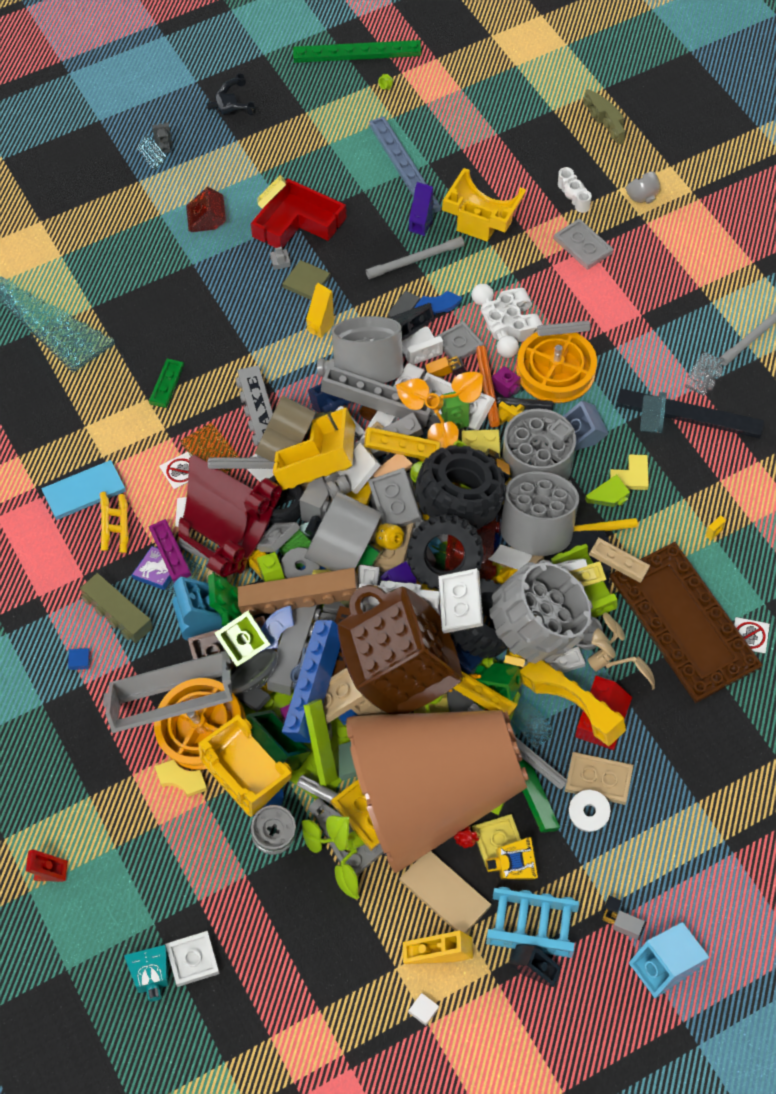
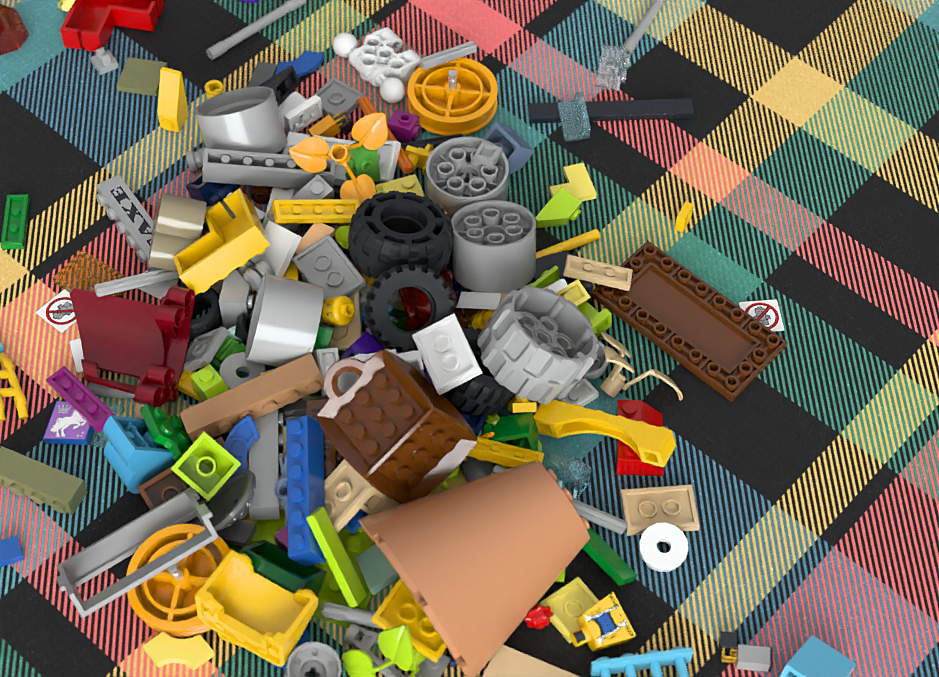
camera: 20 degrees left, 5 degrees down
(362, 311) = (213, 88): none -> yellow bush

